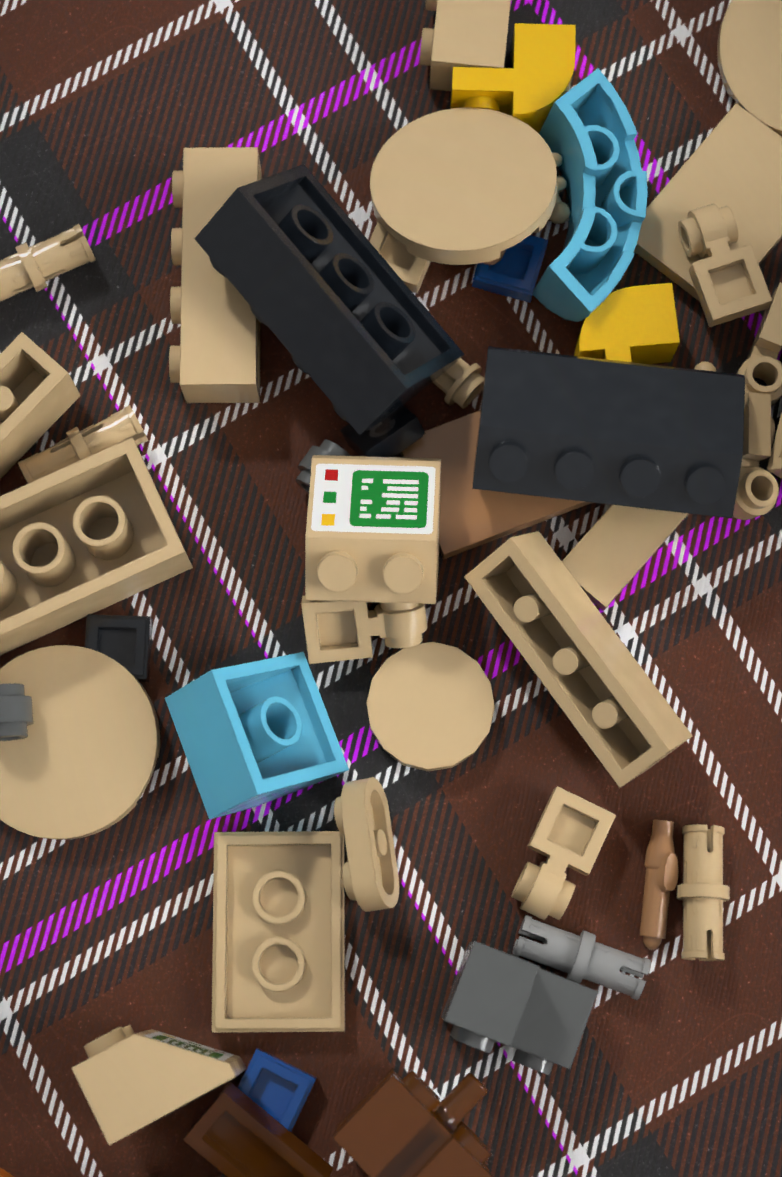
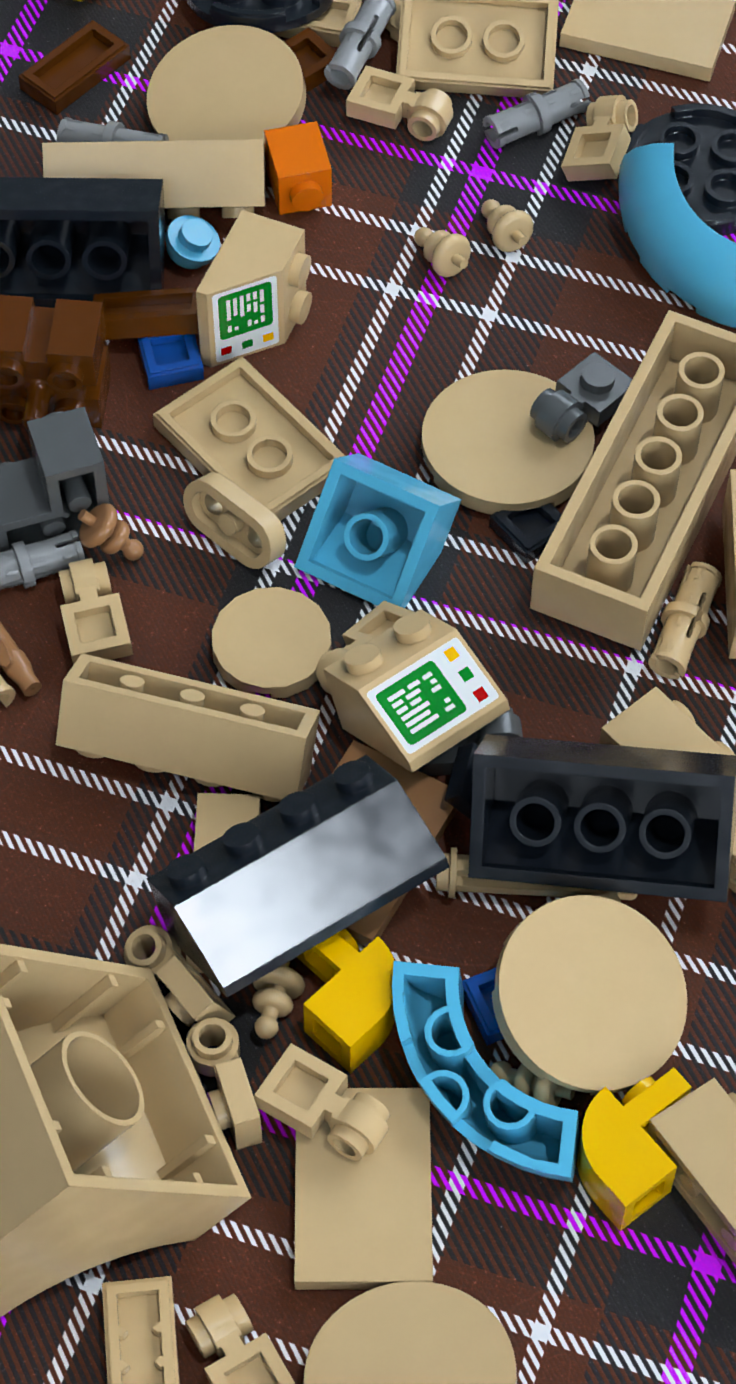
camera: 140 degrees right, 20 degrees down
(491, 920) = (104, 530): none -> medium nougat hair

